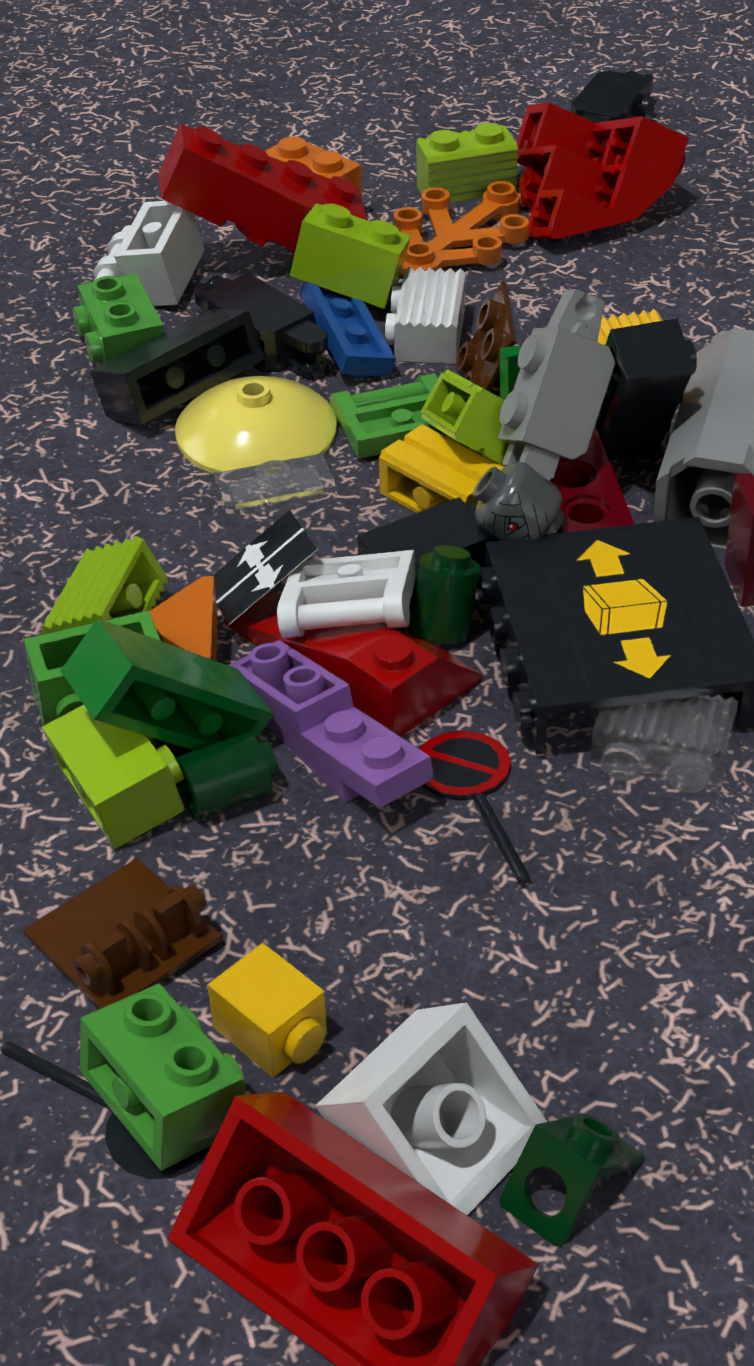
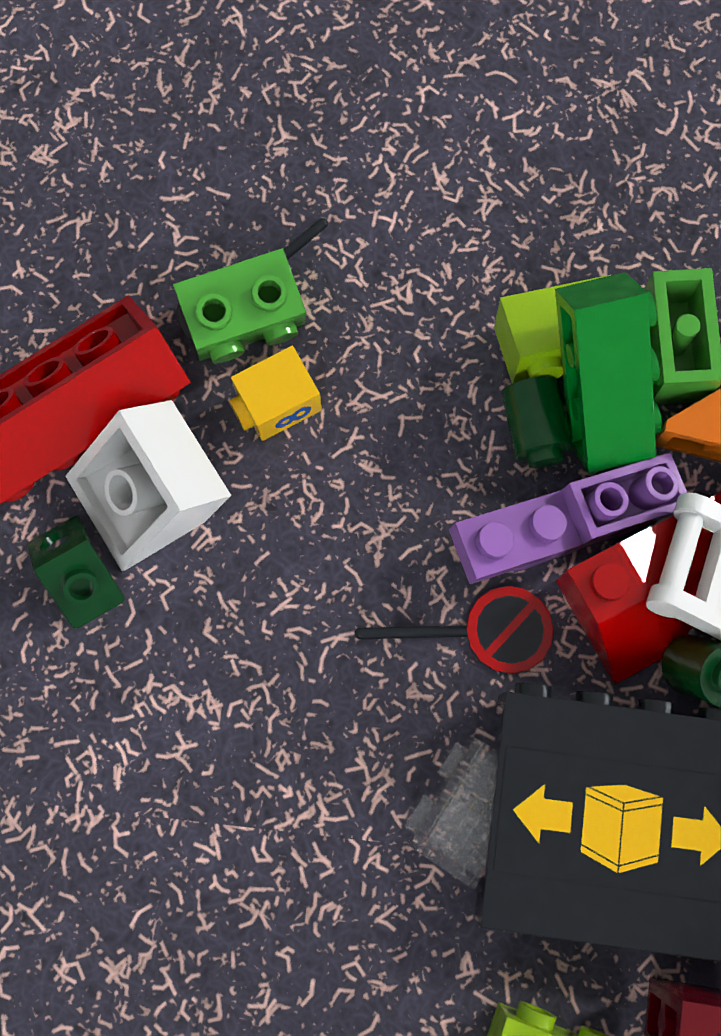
camera: 105 degrees right, 35 degrees up
(124, 933) = (396, 314): reddish brown hinge -> none

